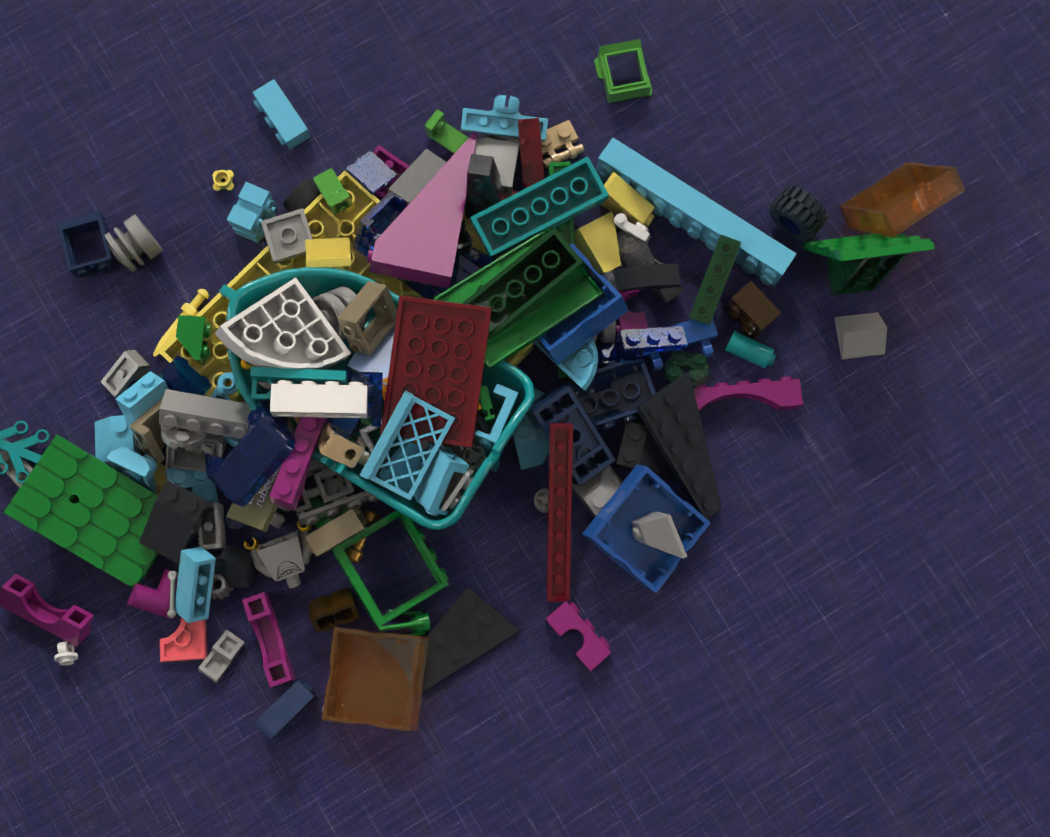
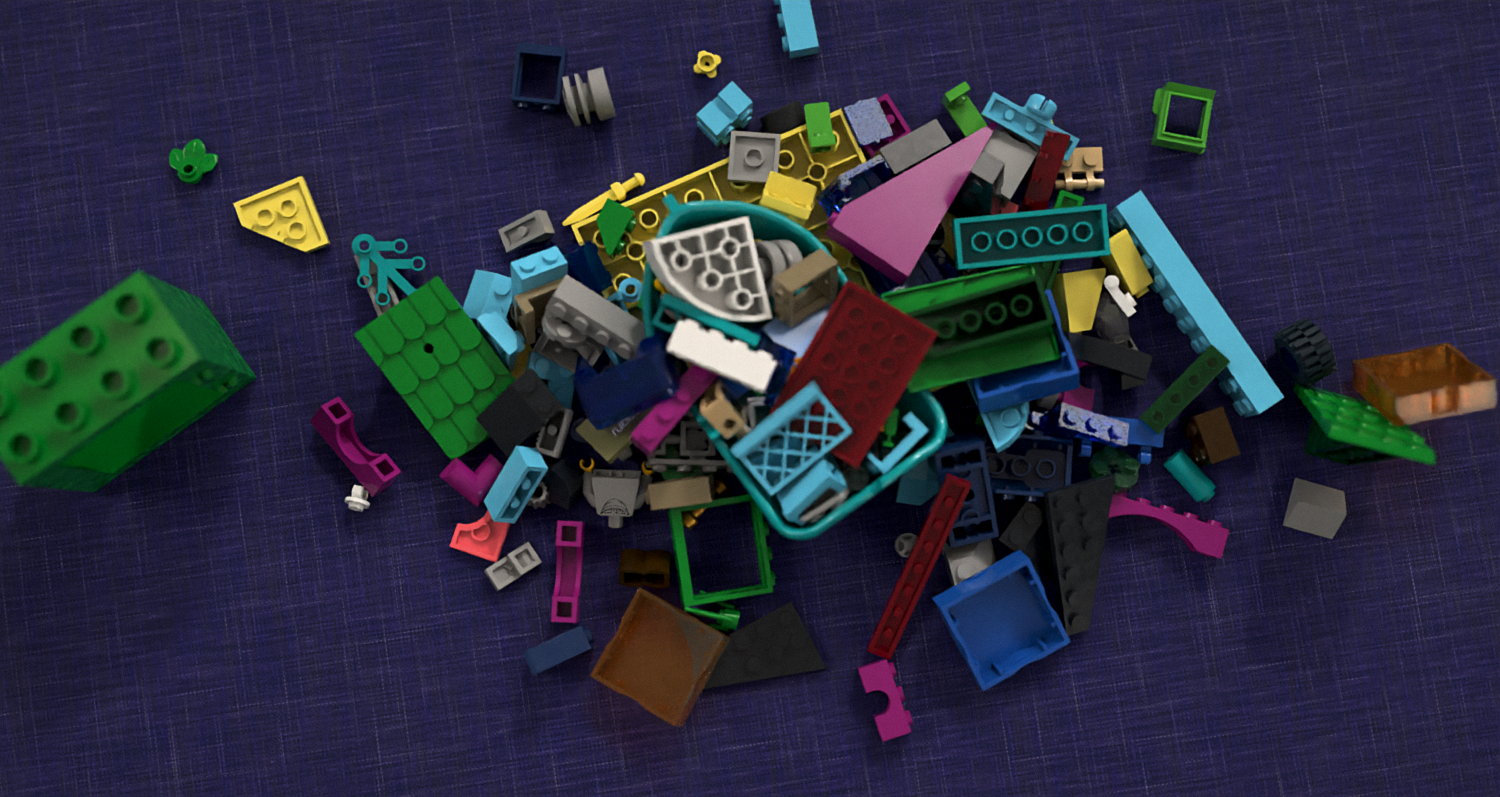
camera: 25 degrees right, 5 degrees up
(172, 575) = (496, 465): light grey hinge -> none
(659, 532) = (1012, 630): light grey slope -> none

